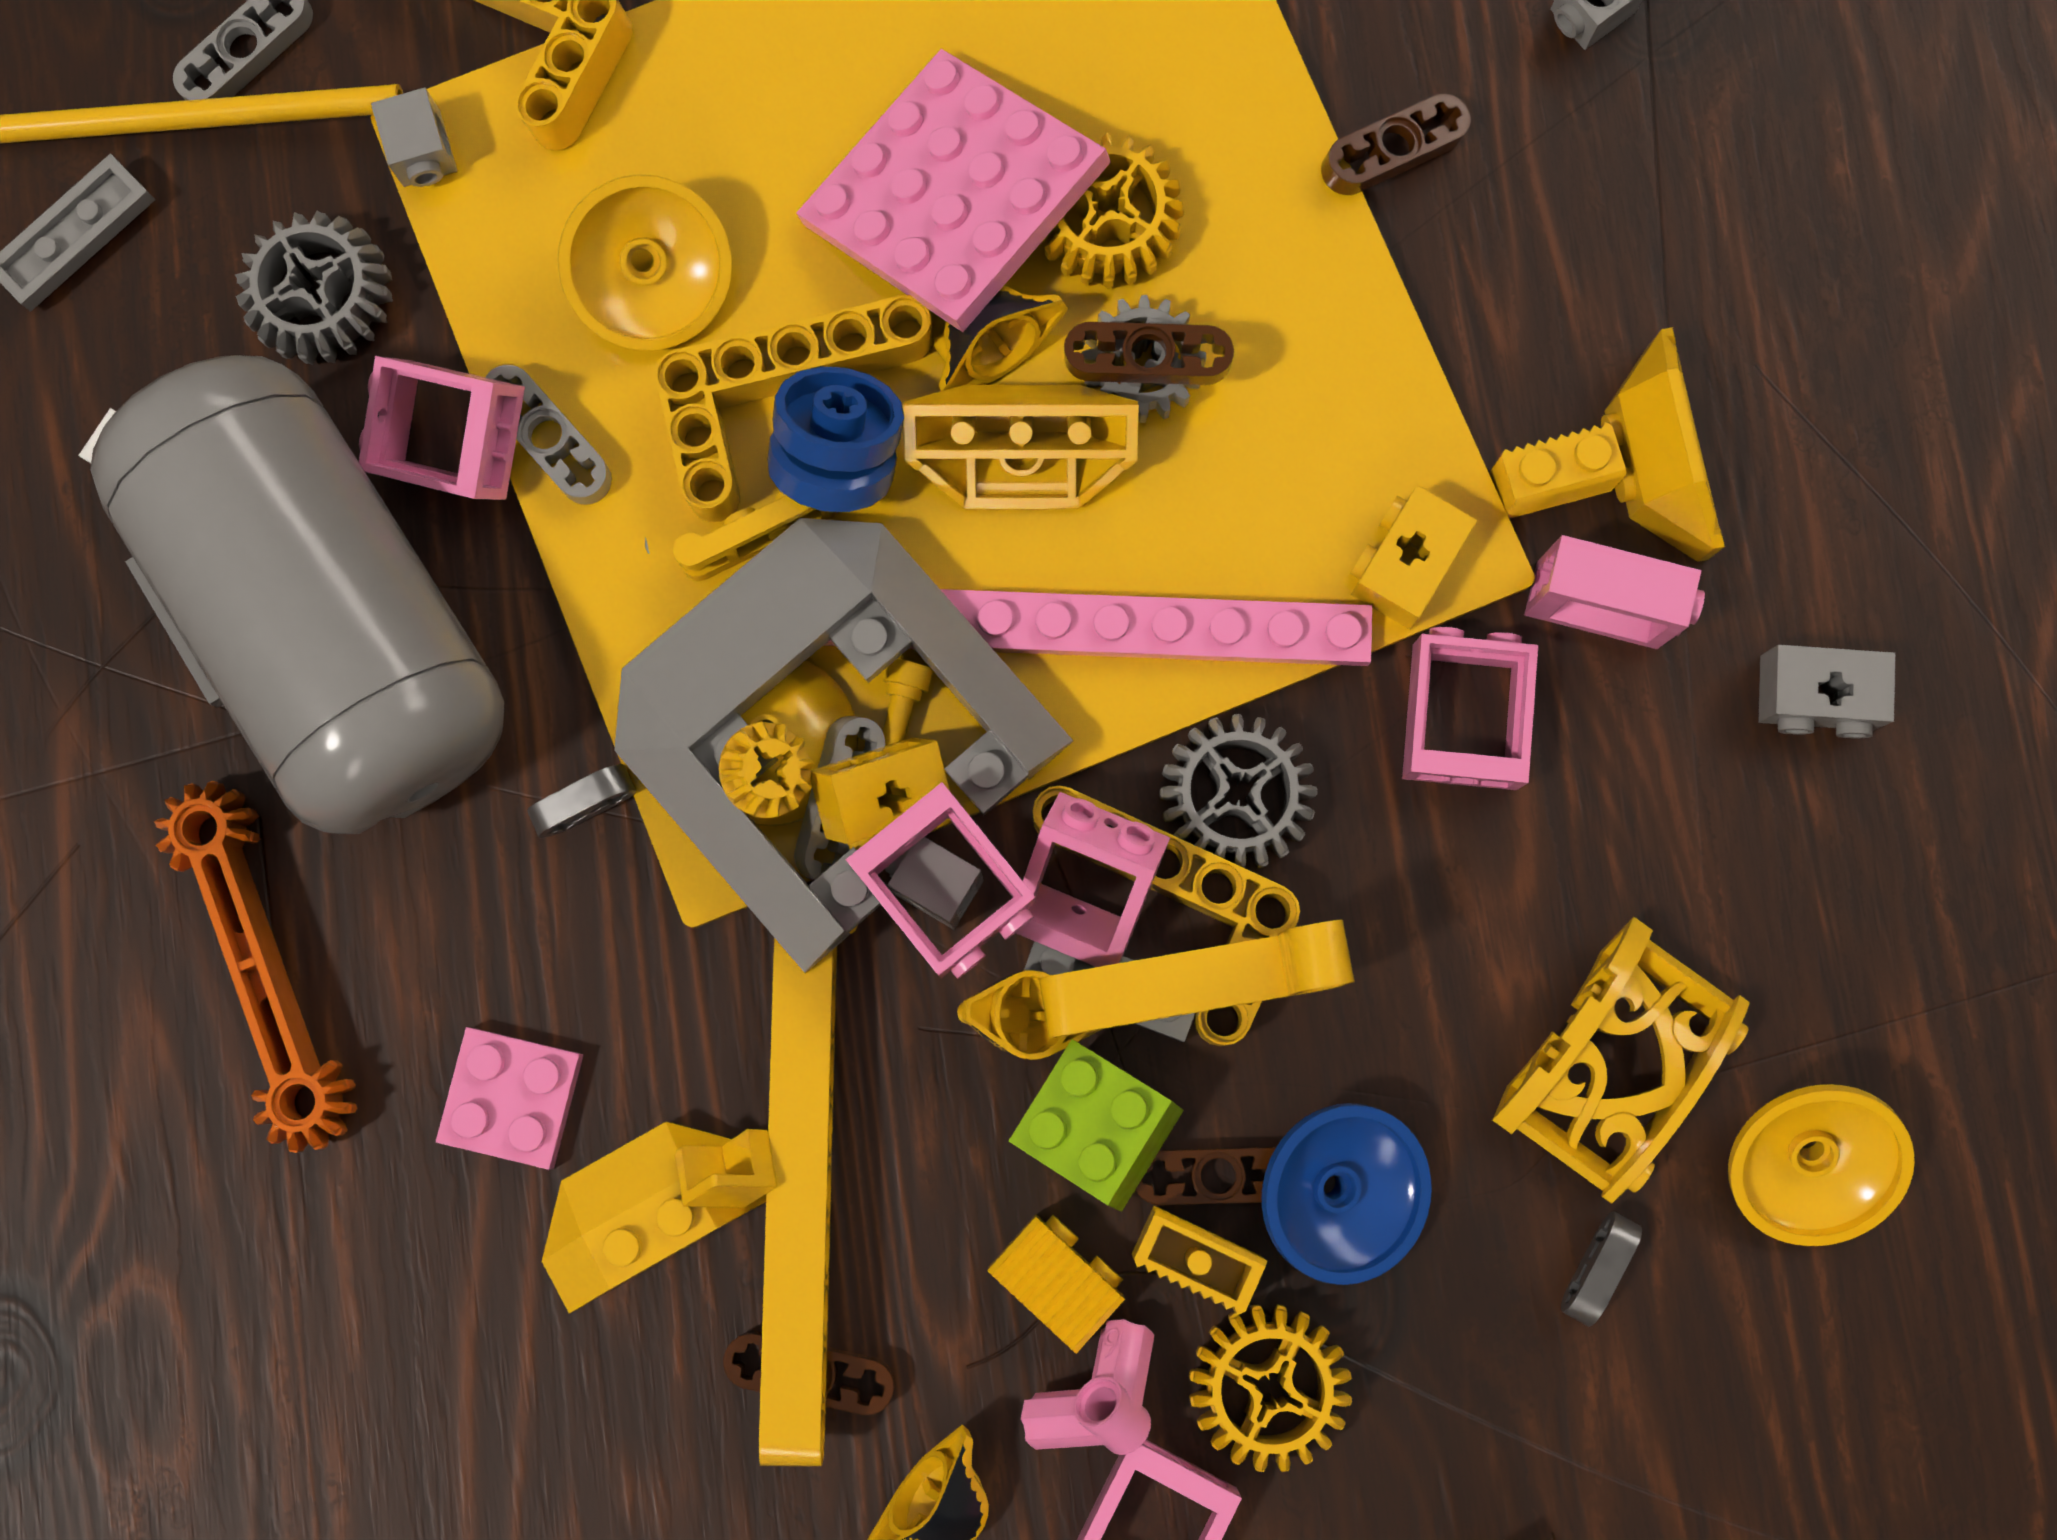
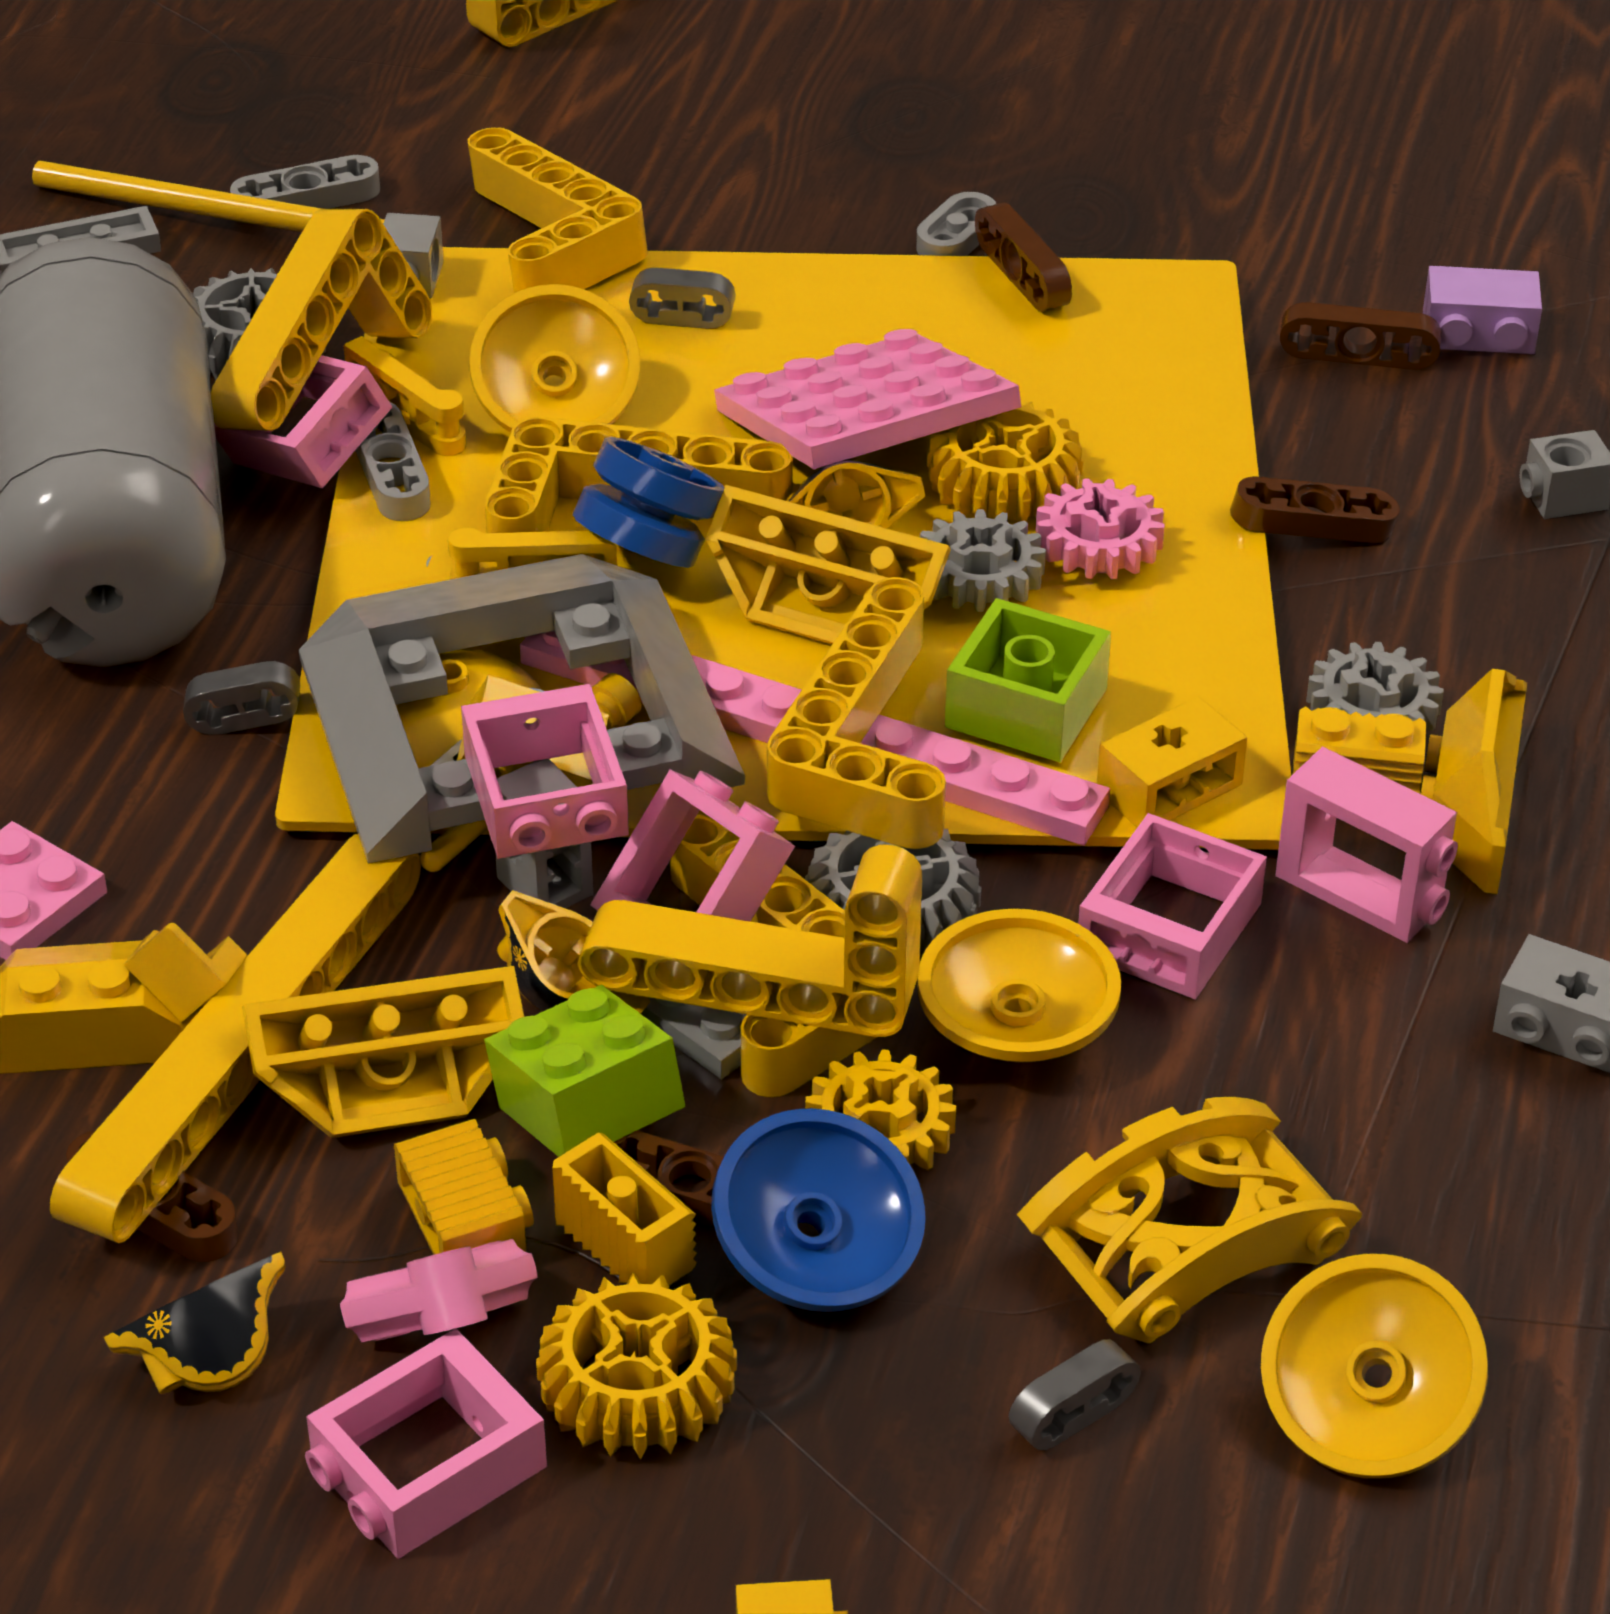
camera: 20 degrees right, 40 degrees down
(392, 328) = (335, 266): none -> yellow beam
(525, 348) = (428, 412): none -> yellow plate
(704, 91) = (682, 298): none -> beam
(740, 765) = (416, 682): yellow gear -> none
(922, 1166) = (383, 1050): none -> yellow wedge
(1133, 645) = (817, 750): none -> yellow beam
(1165, 334) = (1019, 539): reddish brown beam -> none
(1234, 245) = (1100, 528): none -> bright pink gear
(1259, 515) = (1027, 679): none -> lime brick
(1361, 1061) = (889, 1100): none -> yellow gear
(1436, 869) = (1019, 985): none -> yellow dish
(1527, 357) = (1376, 684): none -> light grey gear

